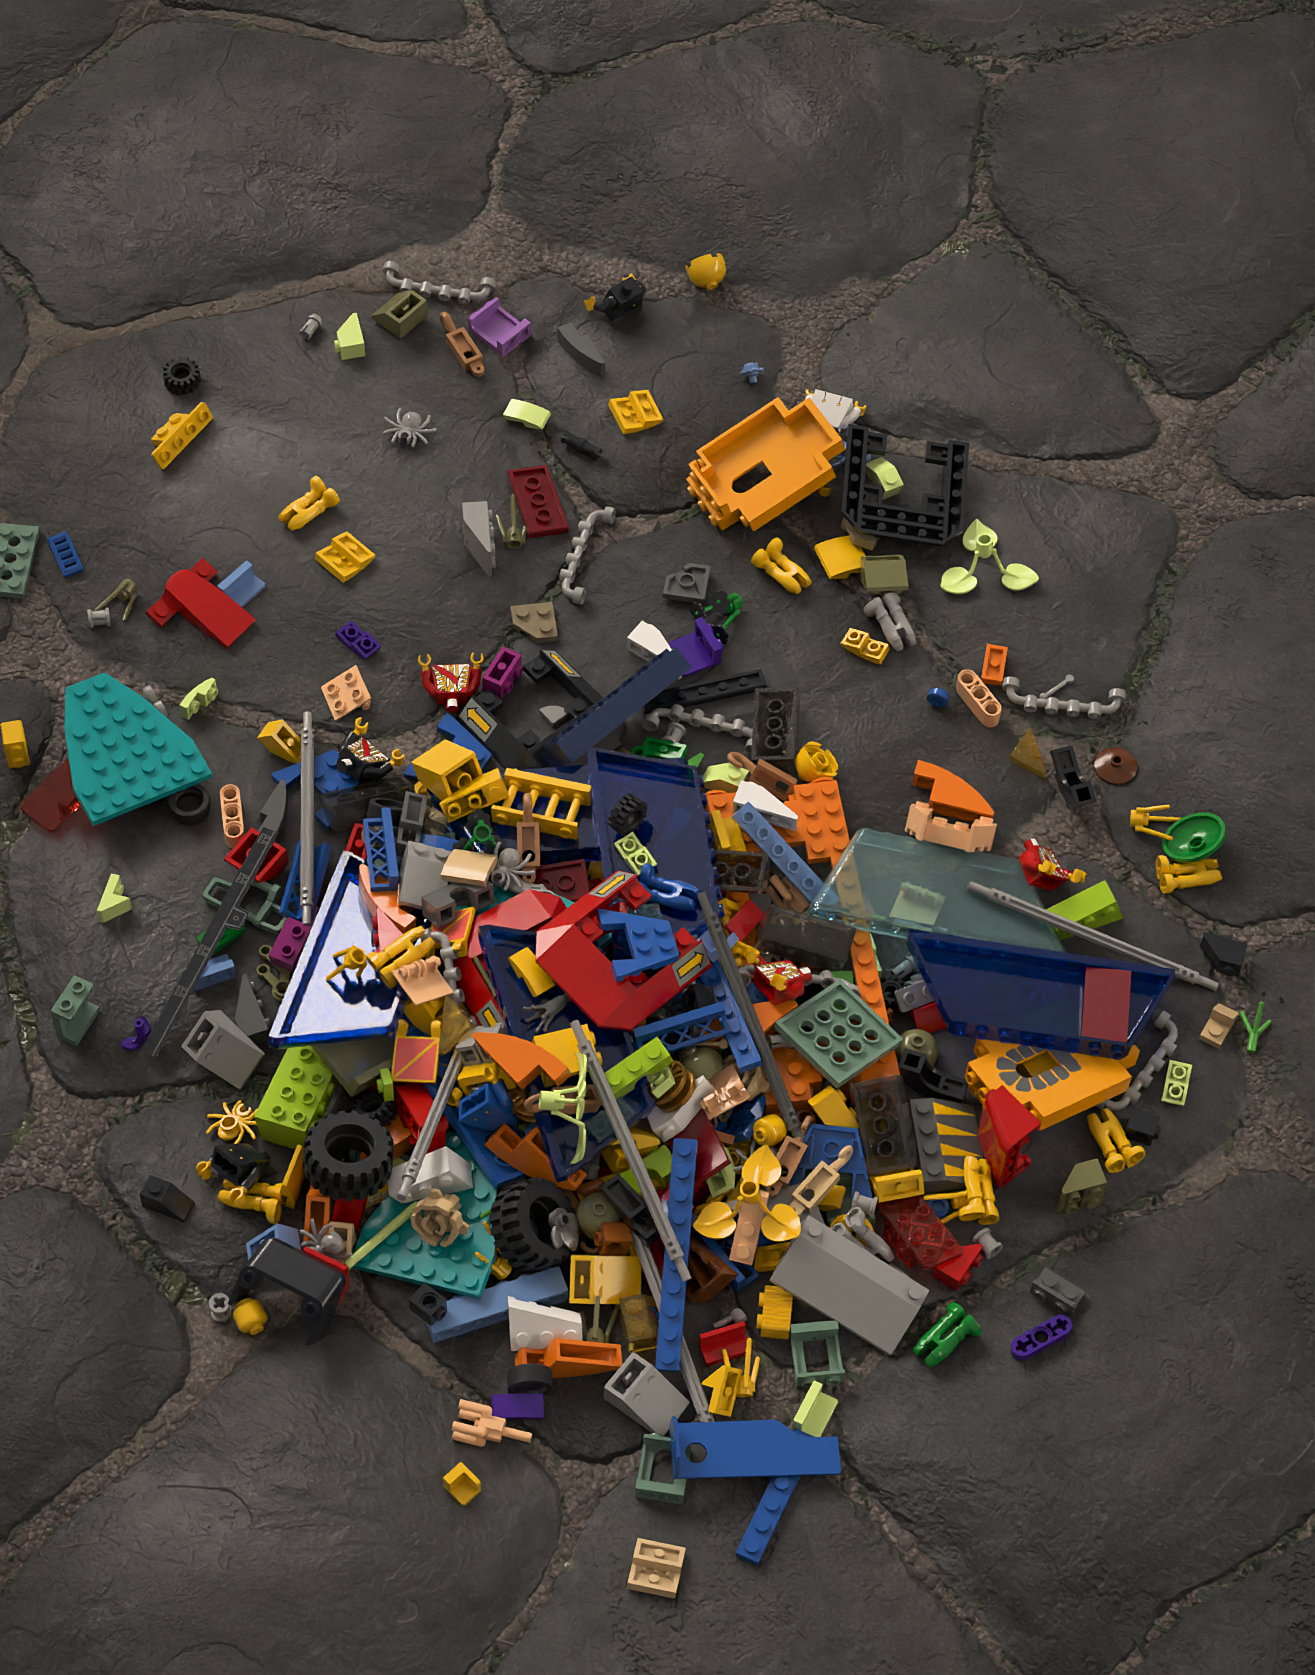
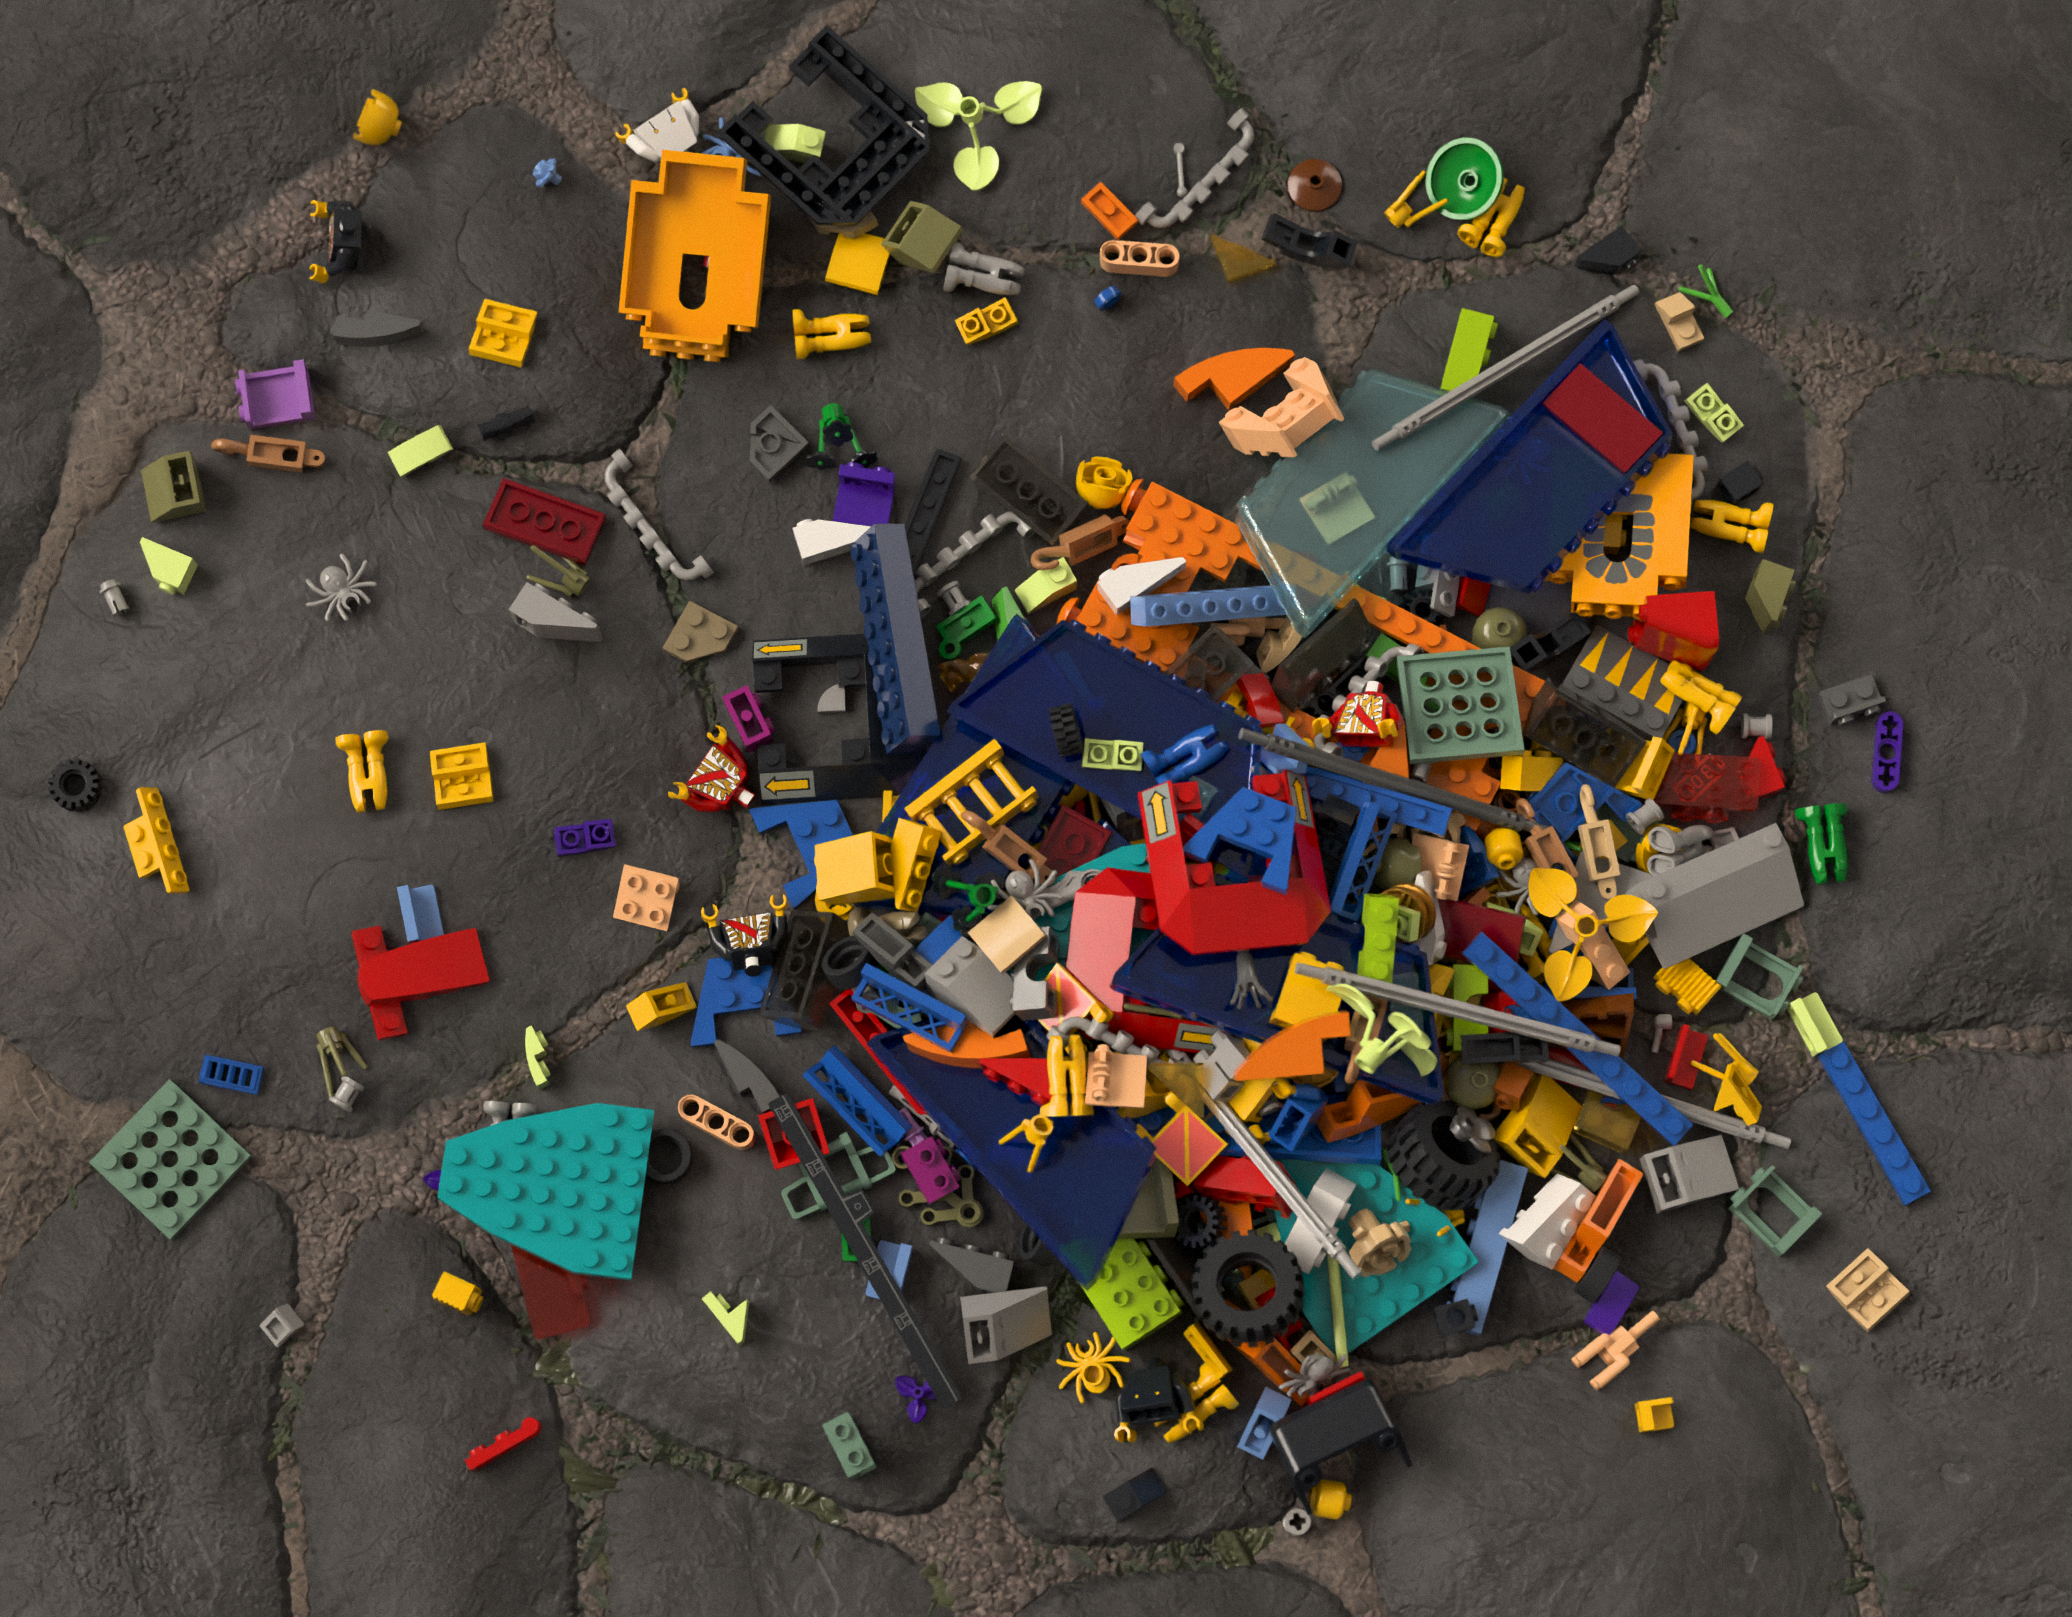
camera: 50 degrees left, 20 degrees up
(307, 820) = (785, 1048): light grey axle -> none
(385, 1085) = (1190, 1194): lime plate -> none
(425, 288) = (159, 435): light grey bar -> none
(526, 967) = (1183, 966): yellow slope -> none
(726, 833) = (1145, 641): yellow panel -> none
(751, 1450) = (1819, 1116): blue piece -> none
(1043, 868) = (1394, 352): red torso -> none

